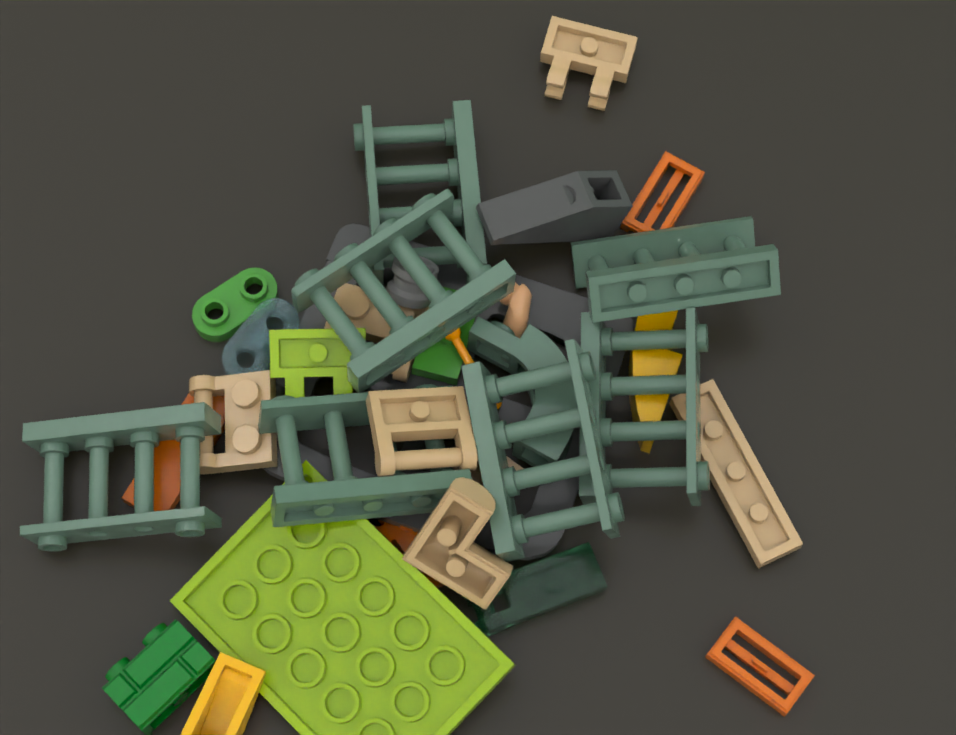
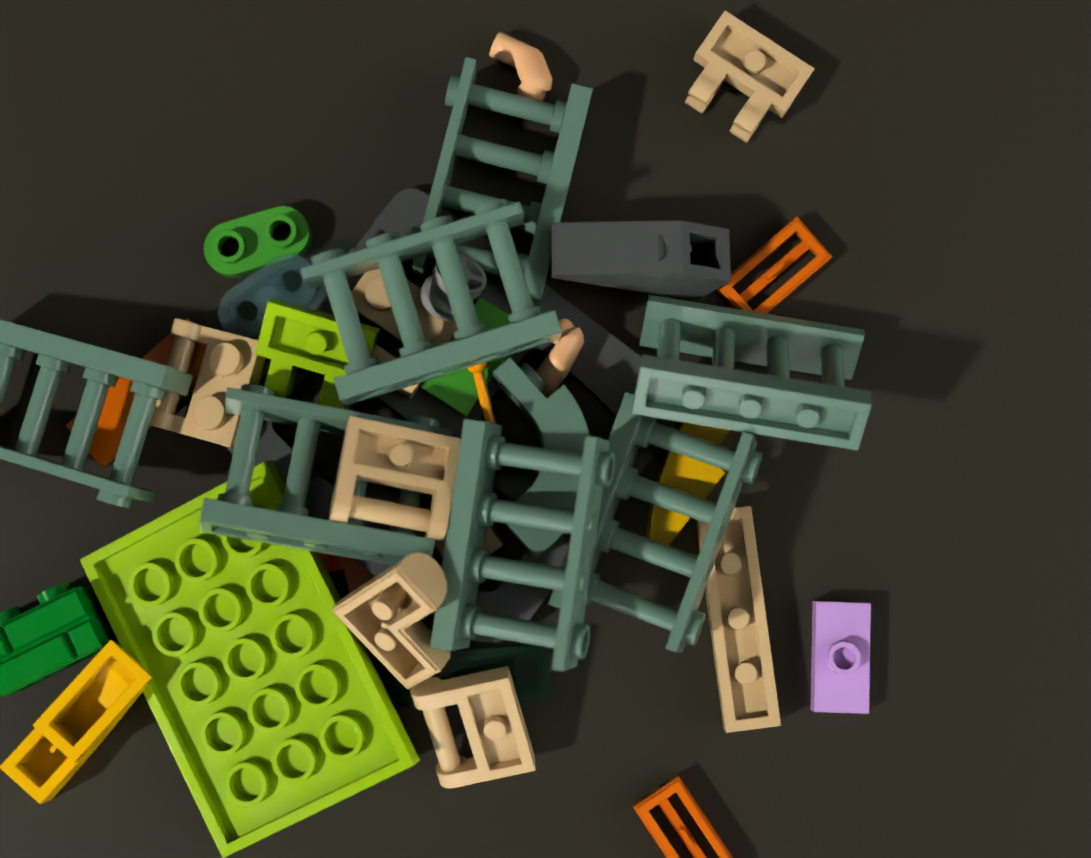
camera: 25 degrees right, 15 degrees up
(408, 100) = (528, 62): none -> light nougat arm
(565, 615) = (491, 723): none -> tan plate
(830, 478) = (840, 657): none -> lavender plate

